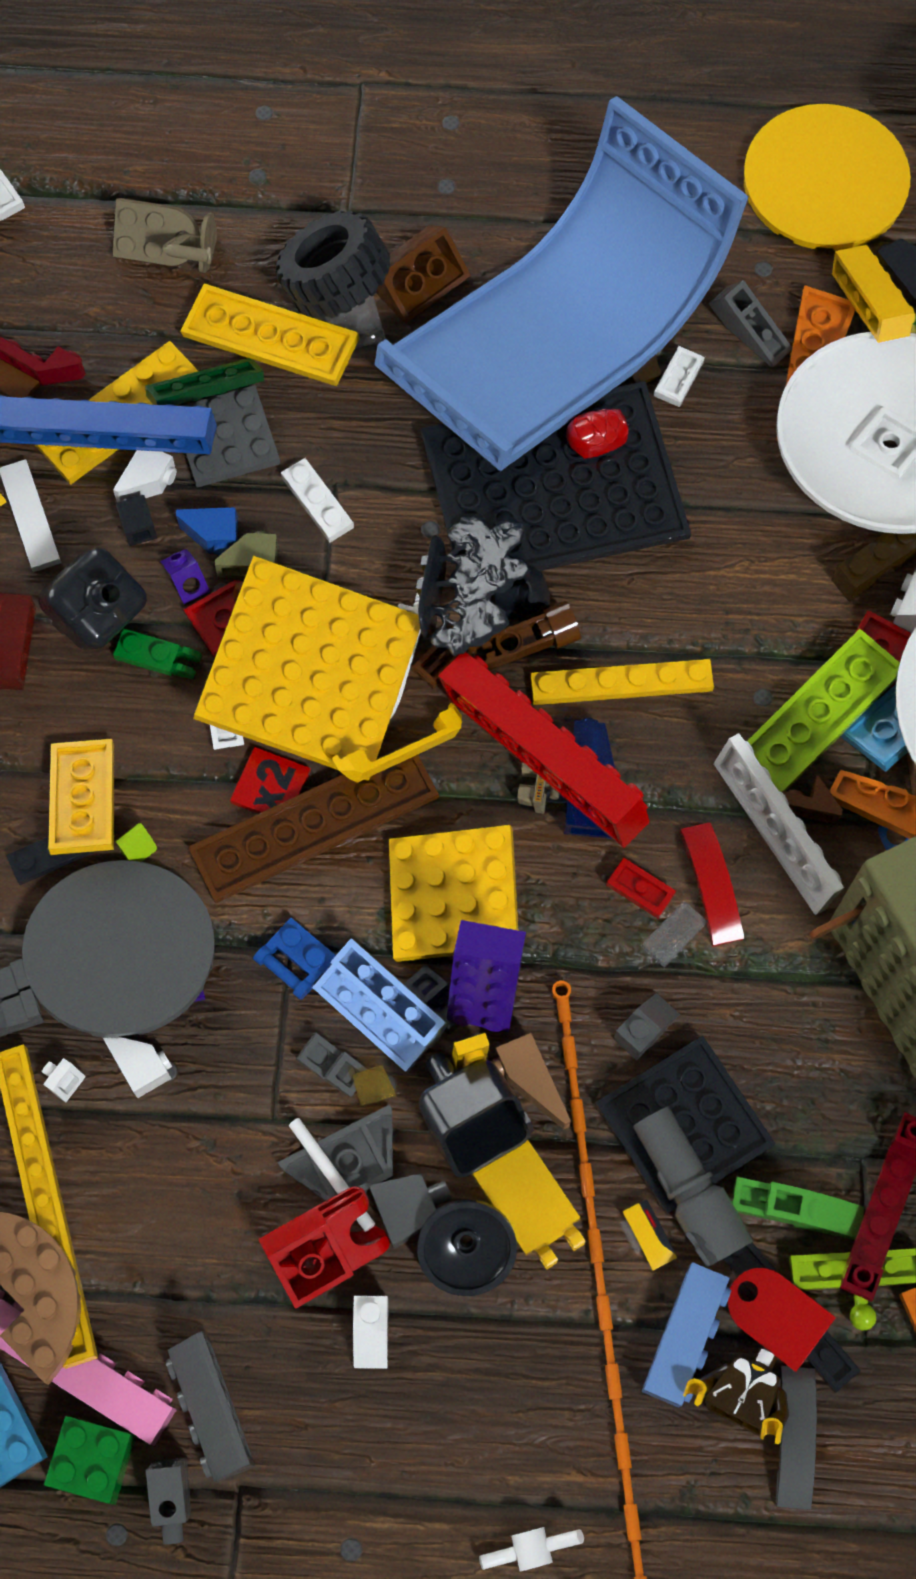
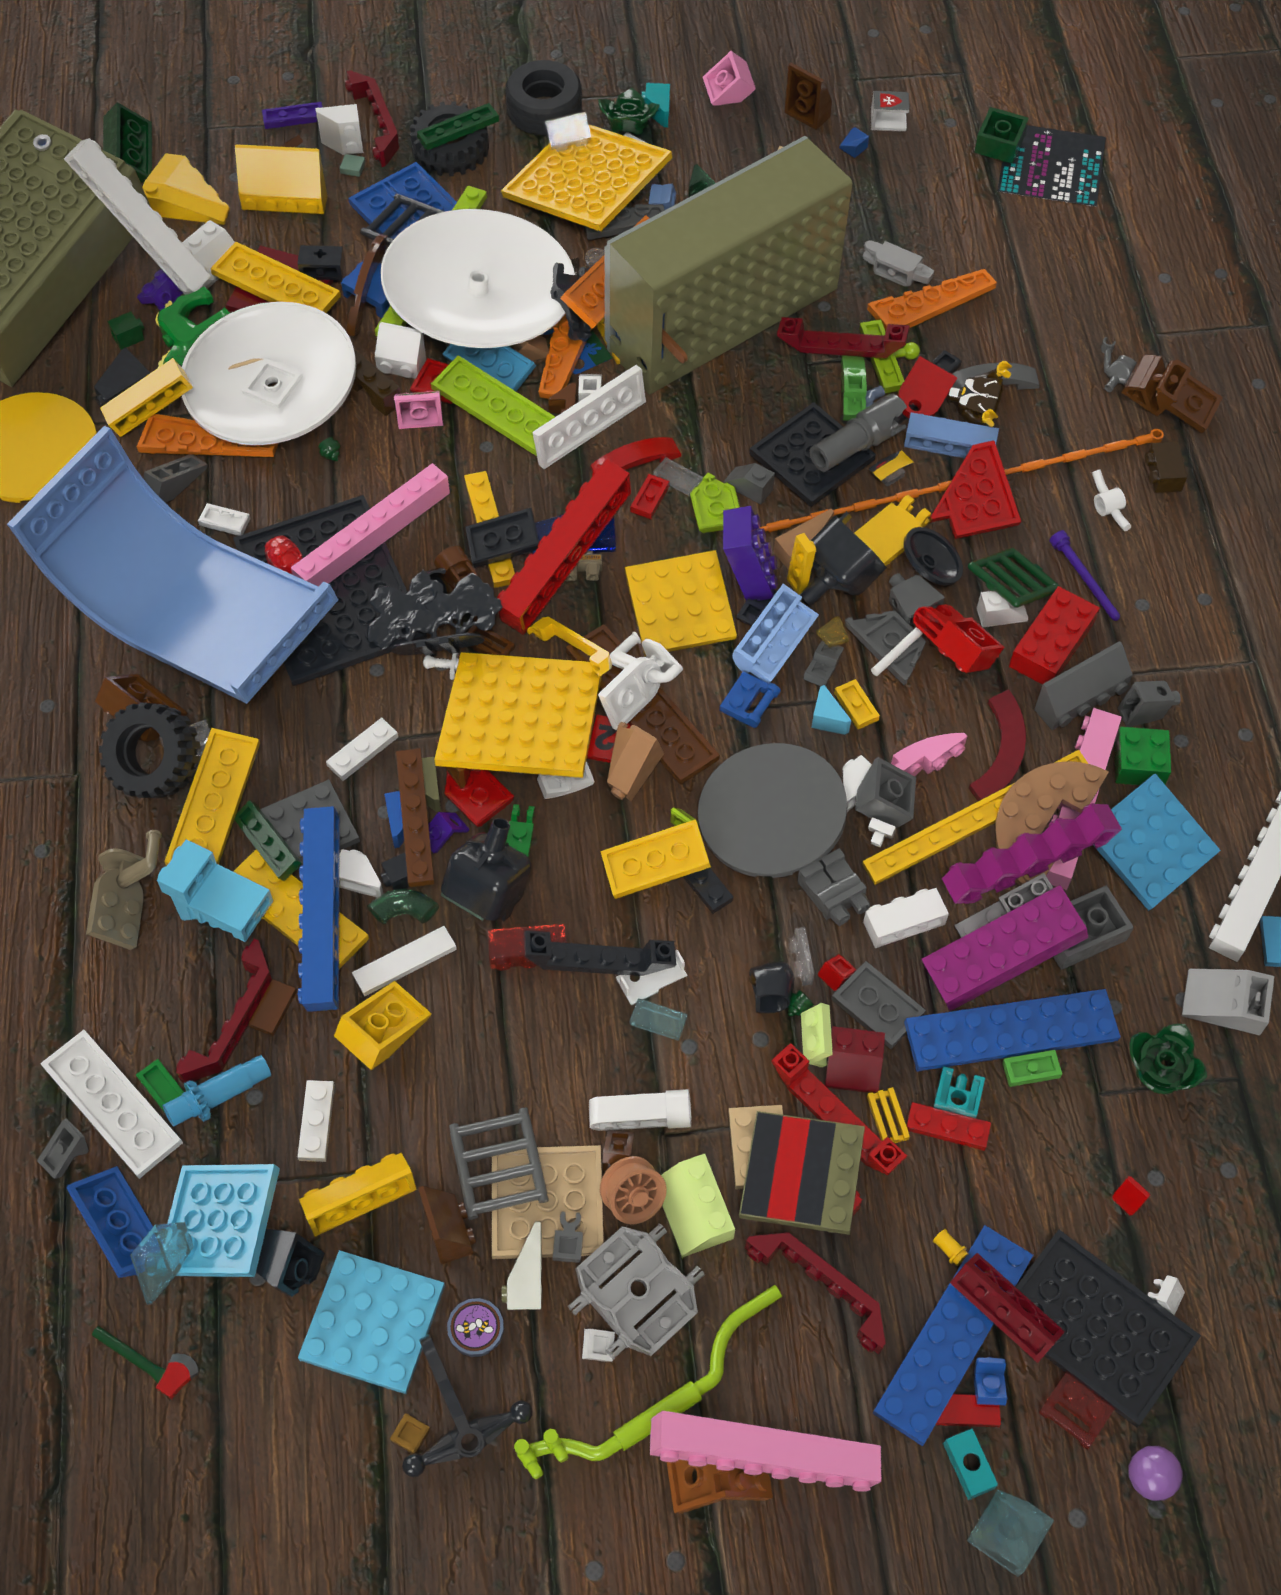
camera: 100 degrees left, 10 degrees down
(97, 515) = (403, 902): none -> clear green cylinder
(98, 1090) = (887, 794): none -> dark grey slope
(135, 317) = (213, 892): none -> medium azure brick
(147, 1283) = (1011, 747): none -> dark red tile
(160, 1166) = (930, 753): none -> bright pink slope
(192, 533) = (415, 818): none -> reddish brown plate
(224, 789) = (632, 760): none -> medium nougat slope
(249, 1050) = (829, 714): none -> medium azure slope
(257, 1092) = (856, 704): none -> yellow plate
(307, 1391) = (1054, 636): none -> red brick
(324, 814) = (639, 679): none -> white plate
(452, 1350) = (1003, 558): none -> dark green bar
(472, 1453) = (1061, 541): none -> dark purple piece
(569, 1345) = (978, 495): none -> red wing
(589, 686) = (502, 537): none -> black tile
(618, 974) = (710, 500): none -> lime tile
(622, 531) = (373, 527): none -> bright pink brick
(774, 504) = (330, 449): none -> dark green plate
(782, 1232) = (874, 394): none -> sand blue arm
(828, 612) = (418, 409): none -> bright pink slope
(838, 835) = (588, 384): none -> white slope

